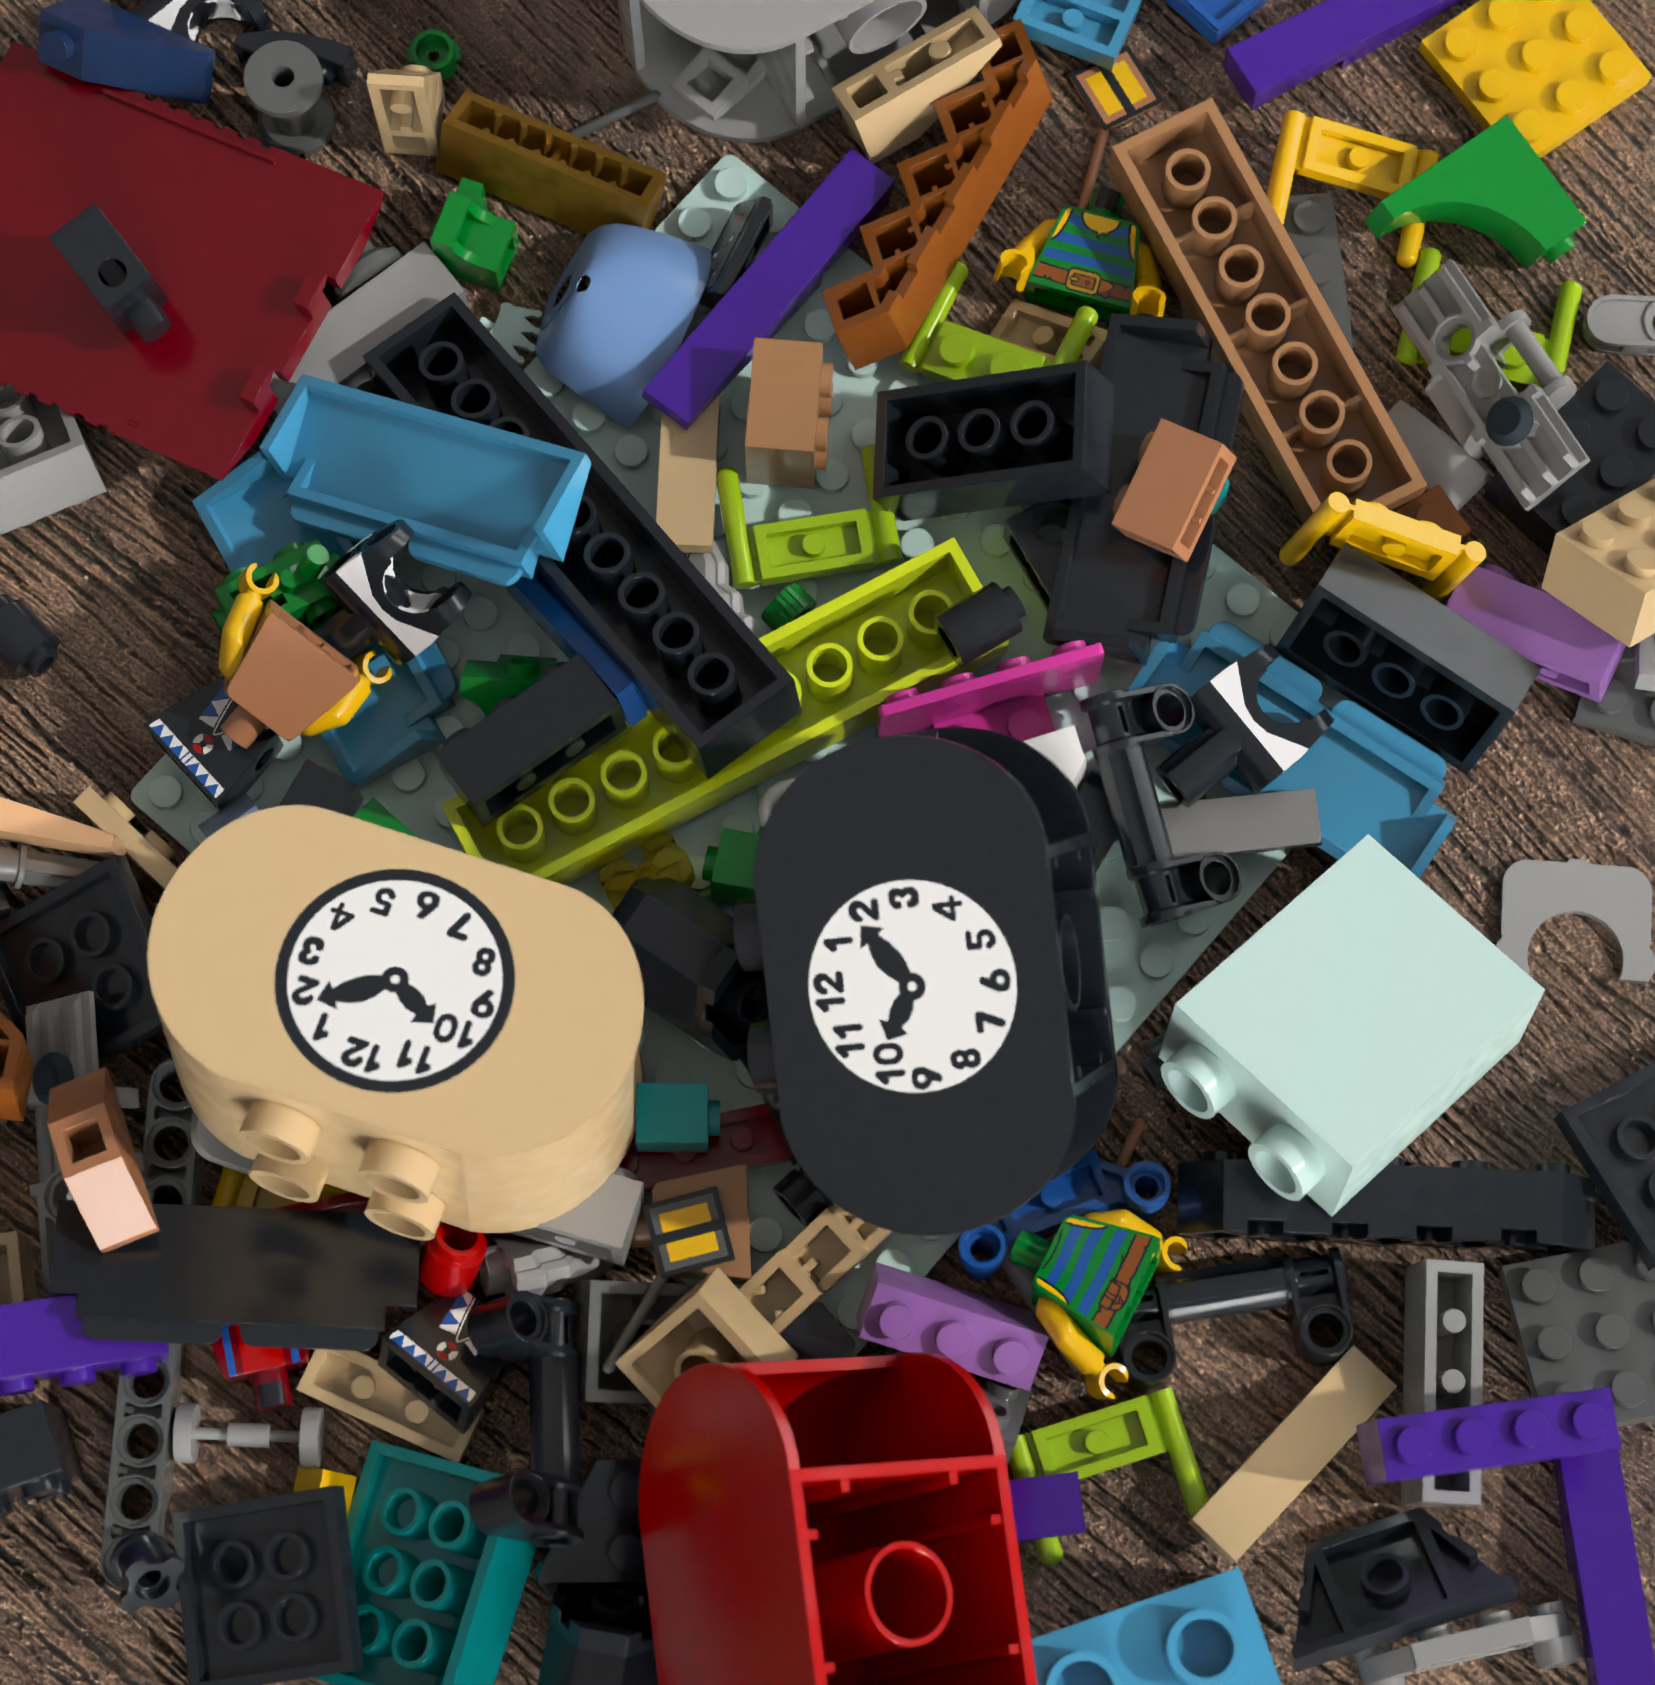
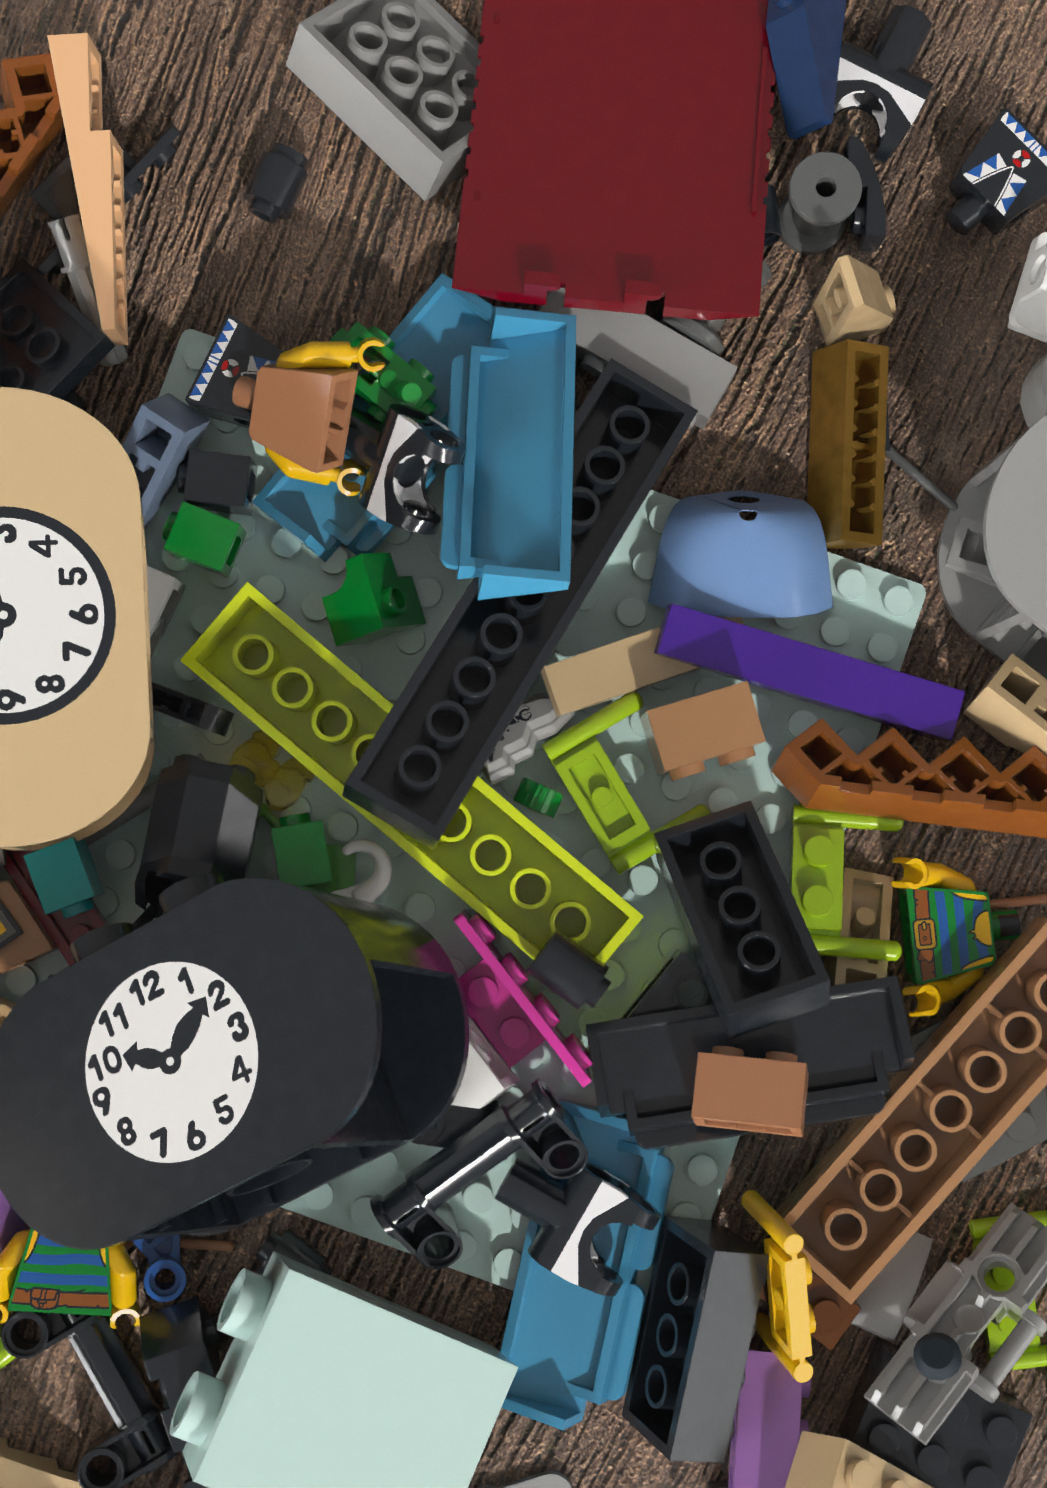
camera: 70 degrees right, 10 degrees up
(111, 815) = (137, 362): tan plate -> none
(113, 274) = (592, 120): black torso -> none
(439, 43) = (922, 301): green plate -> none
(472, 239) = (759, 404): green brick -> none
(512, 327) = (693, 468): light aqua piece -> none
(530, 739) = (321, 632): black brick -> none
(573, 639) = (418, 647): blue tile -> none
(737, 247) = (838, 629): black slope -> none
(1244, 823) = (498, 1249): light grey slope -> none

